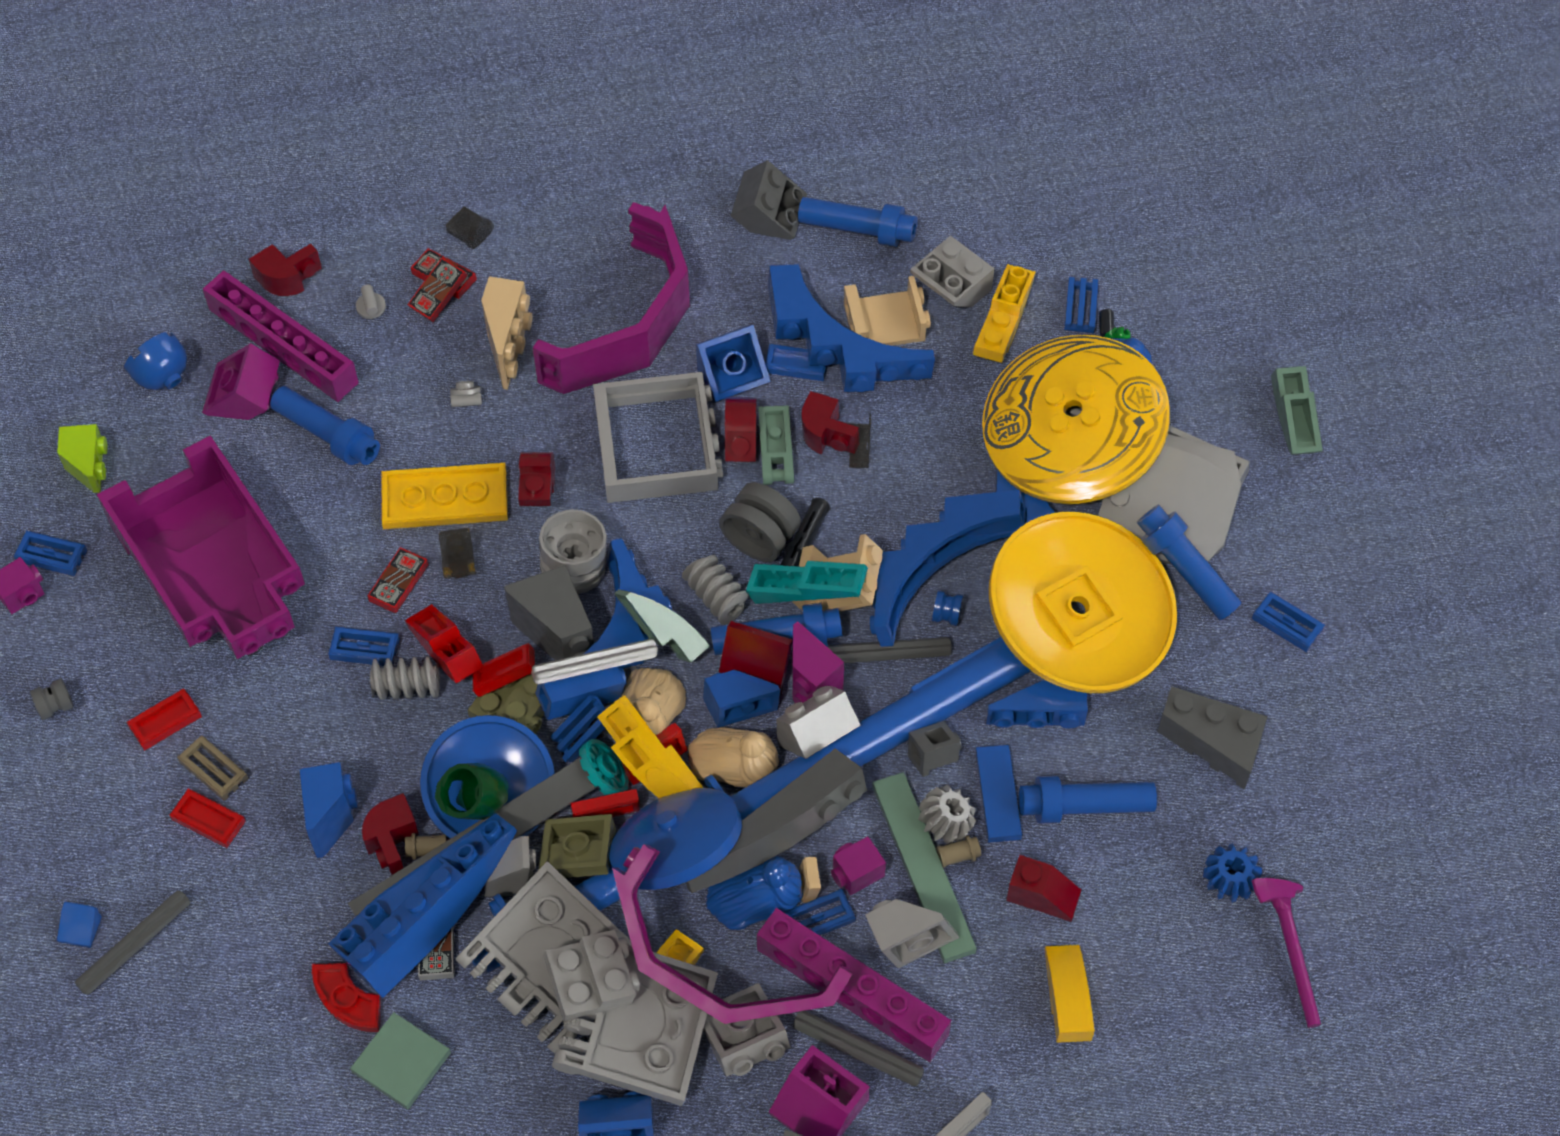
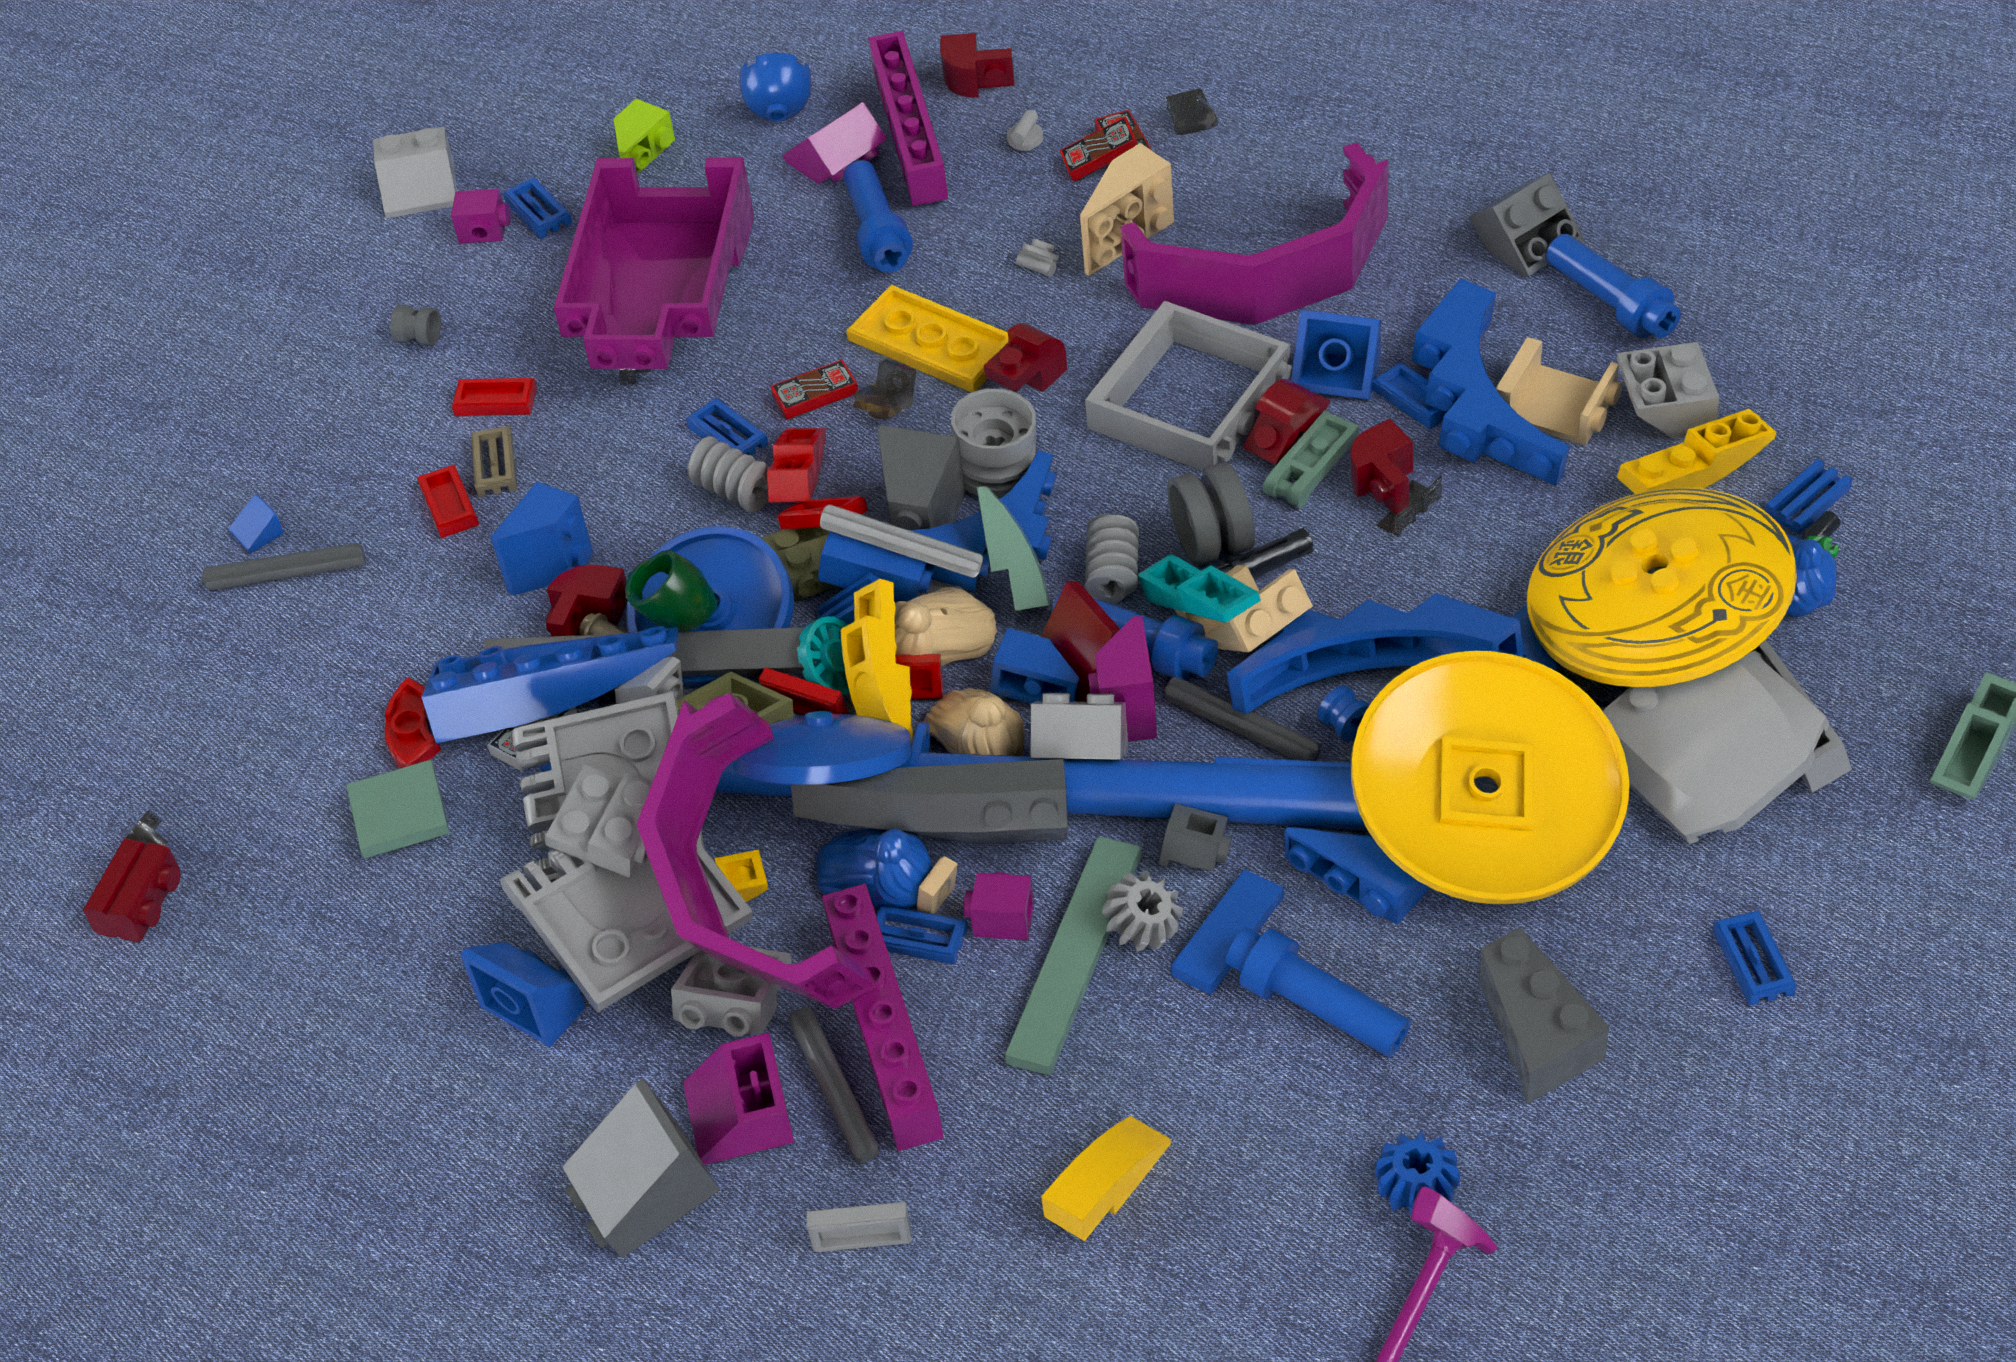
camera: 45 degrees right, 10 degrees down
(908, 930) = (973, 992): light grey slope -> none
(959, 851) = (1124, 960): dark tan pin -> none
(1043, 889) = (1178, 1051): dark red slope -> none
(1167, 536) = (1657, 762): blue piece -> none

